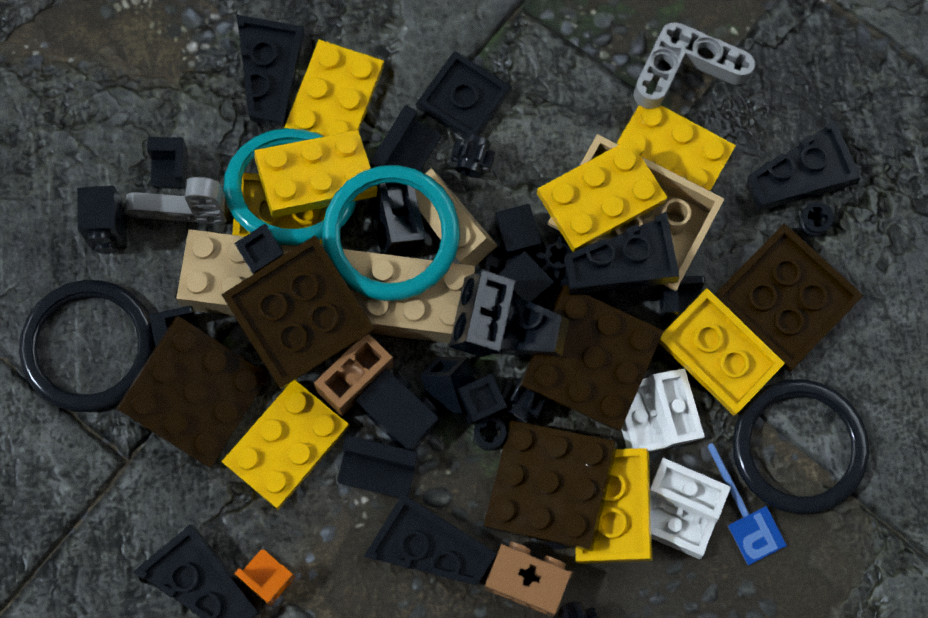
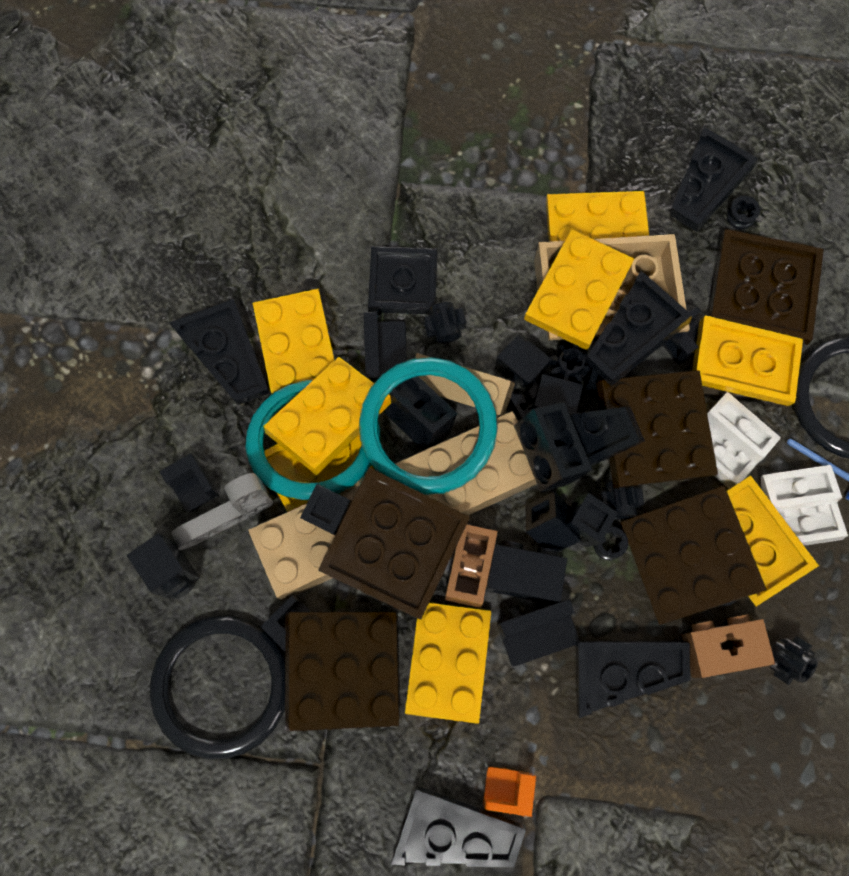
camera: 30 degrees left, 0 degrees up
(677, 52) = (551, 147): light grey beam -> none

